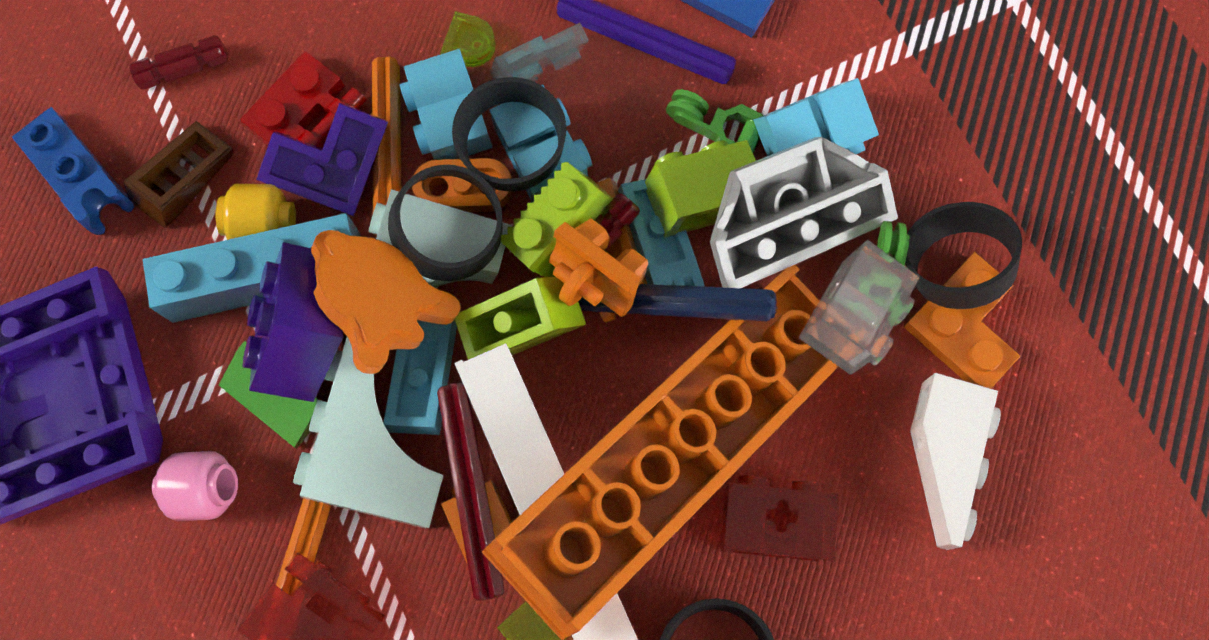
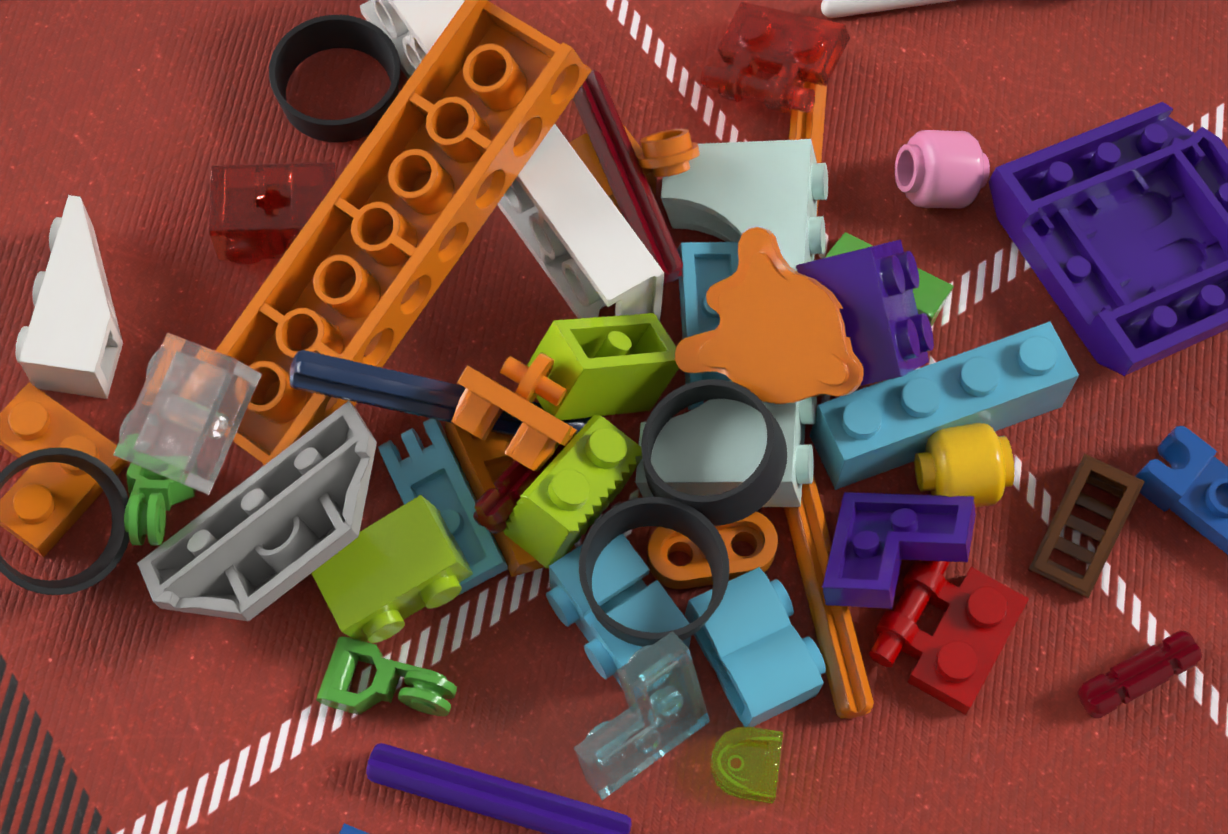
camera: 165 degrees right, 10 degrees down
(428, 502) = (668, 152): none -> orange plate
(834, 114) = (250, 676): medium azure piece -> none

